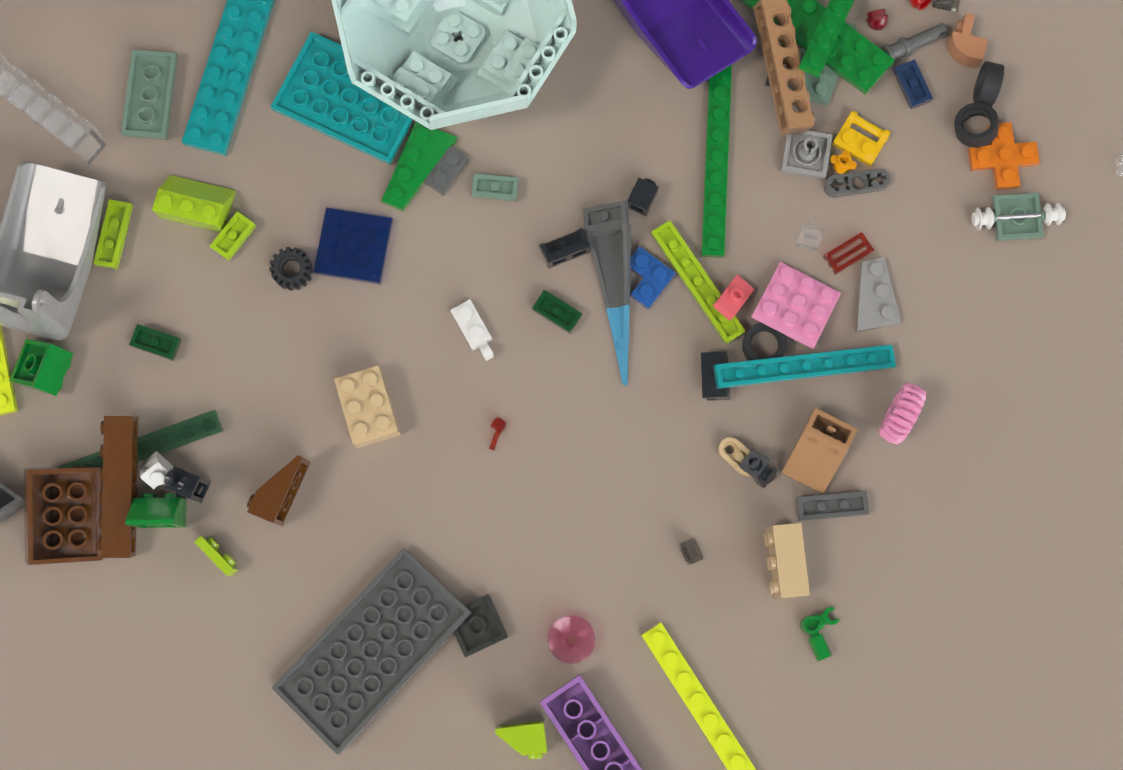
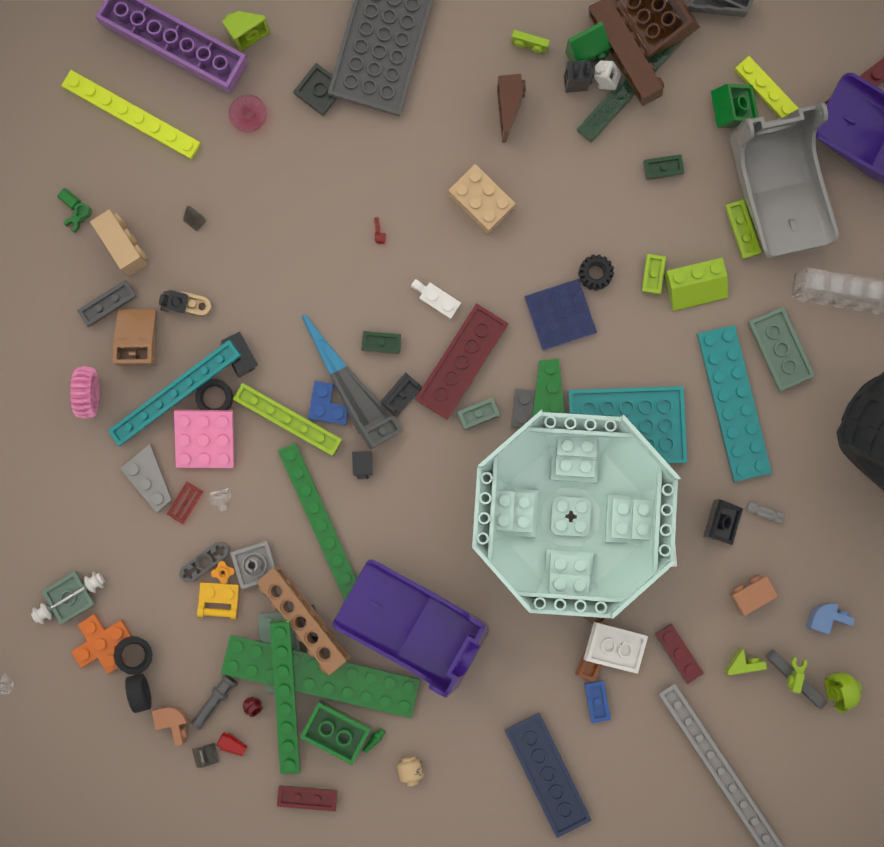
camera: 150 degrees right, 5 degrees up
(483, 248) = (461, 361): none -> dark red plate
(733, 297) = (254, 419): coral plate -> none
(912, 84) = (198, 665): dark blue plate -> none

